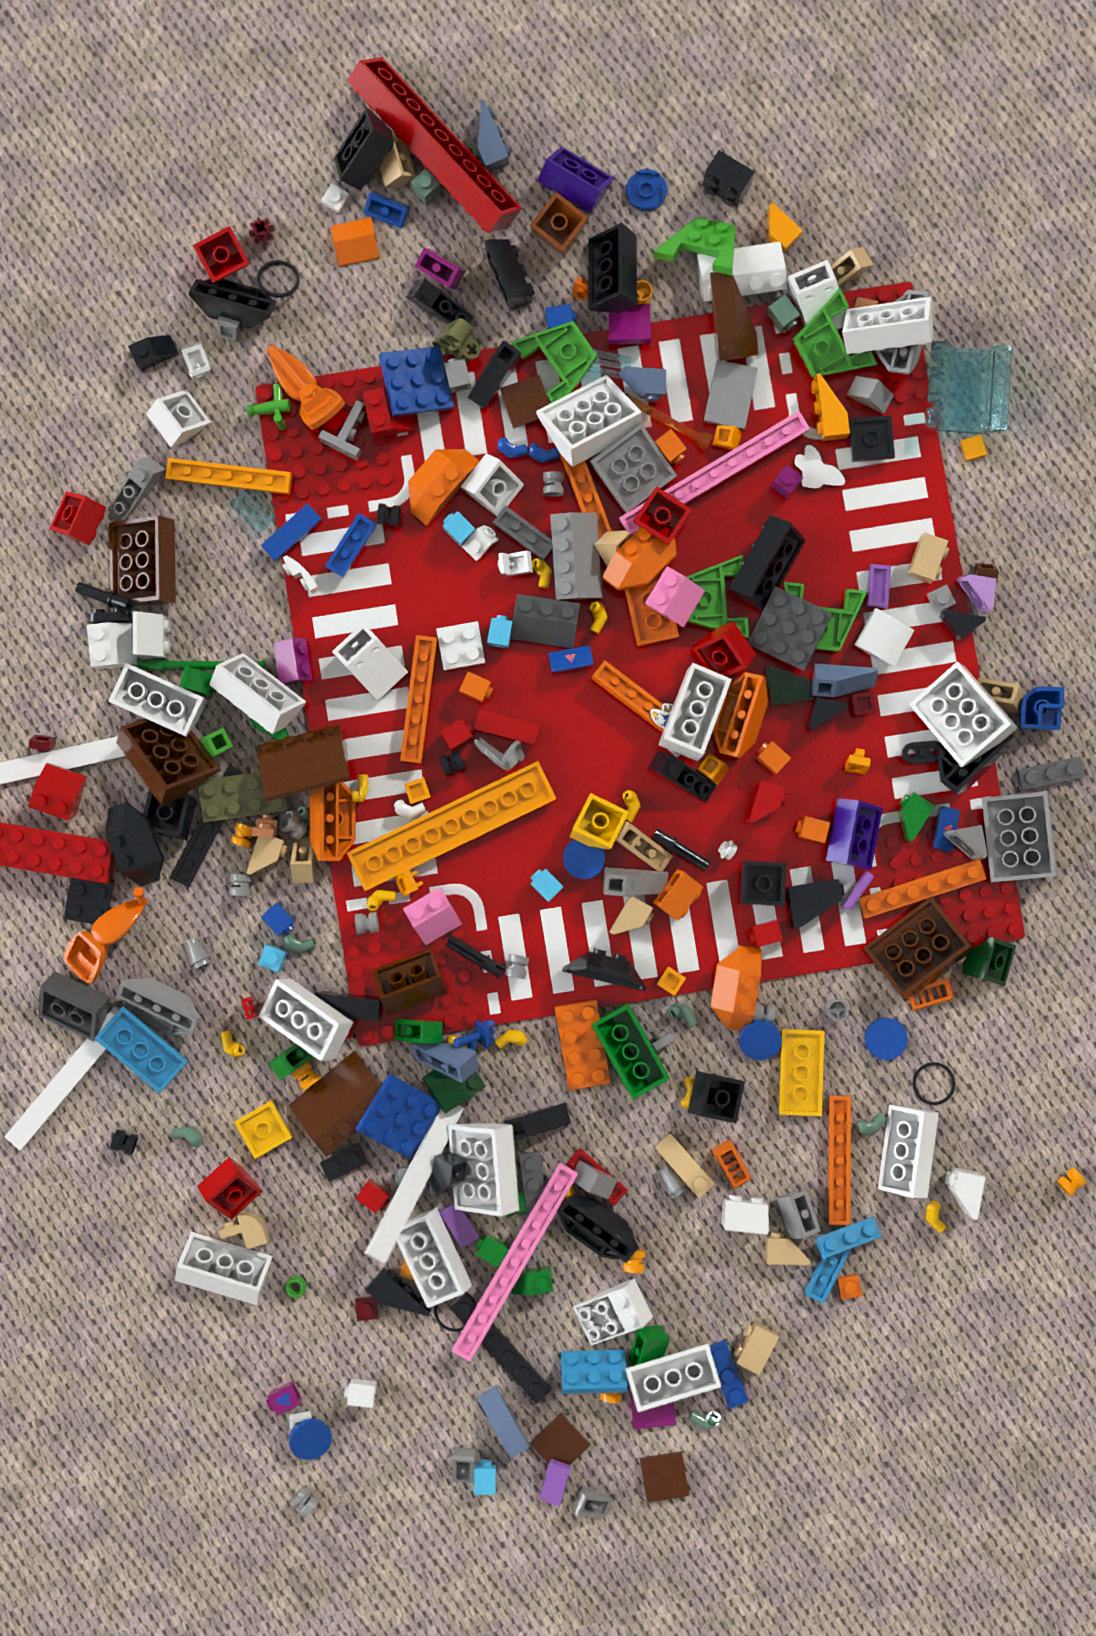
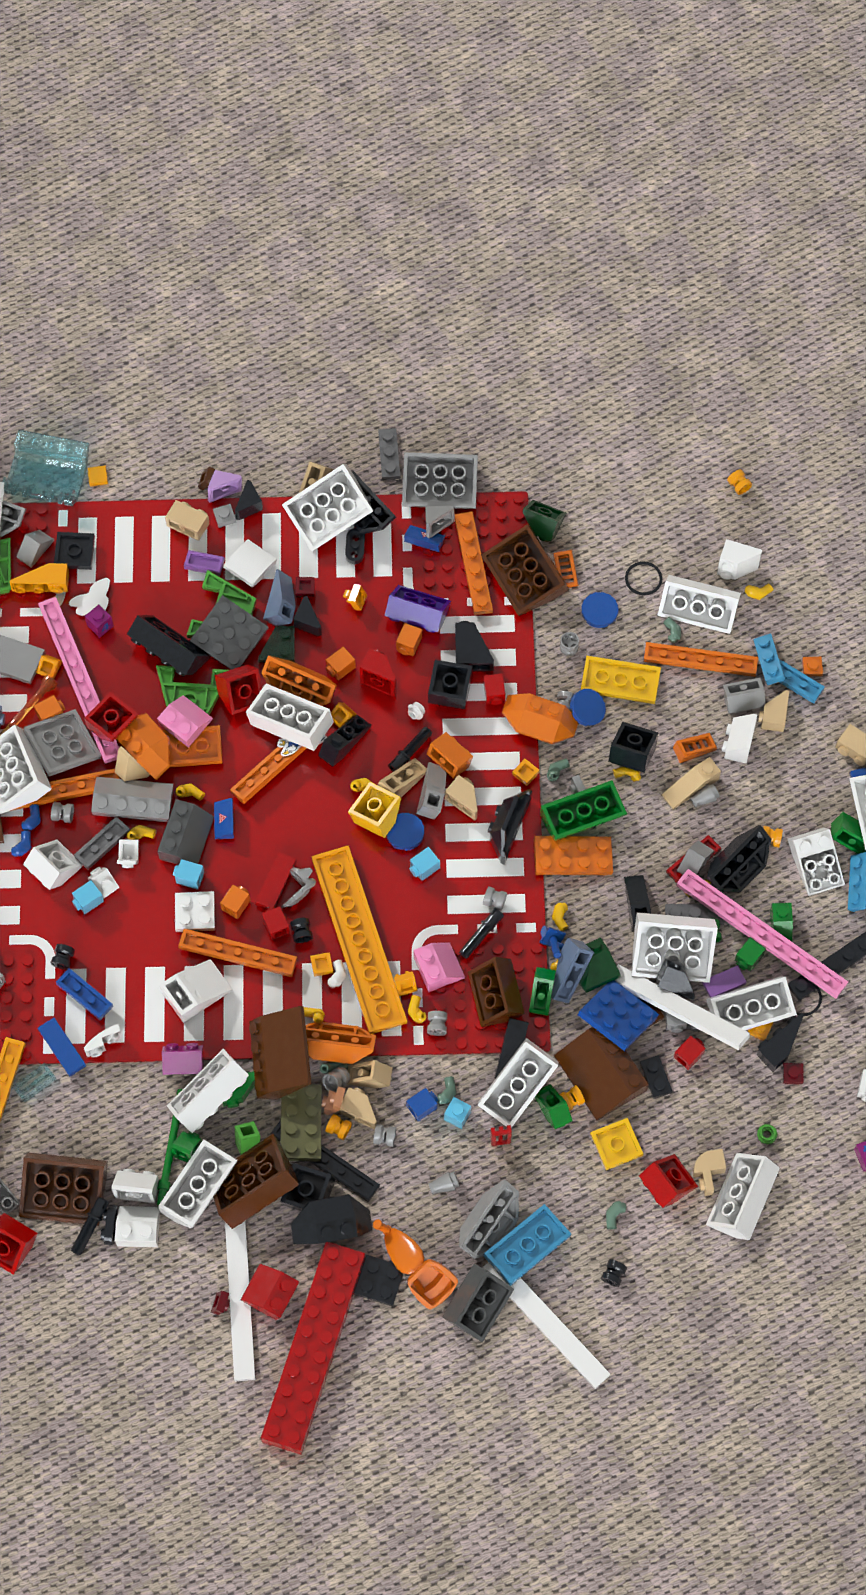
camera: 80 degrees left, 20 degrees down
(231, 1047) = (536, 1164): yellow arm -> none
(439, 481) = (41, 910): orange wedge -> none
(857, 891) = (467, 612): medium lavender tile -> none
(913, 814) = (408, 559): green slope -> none
(1042, 709) = (331, 449): blue brick -> none

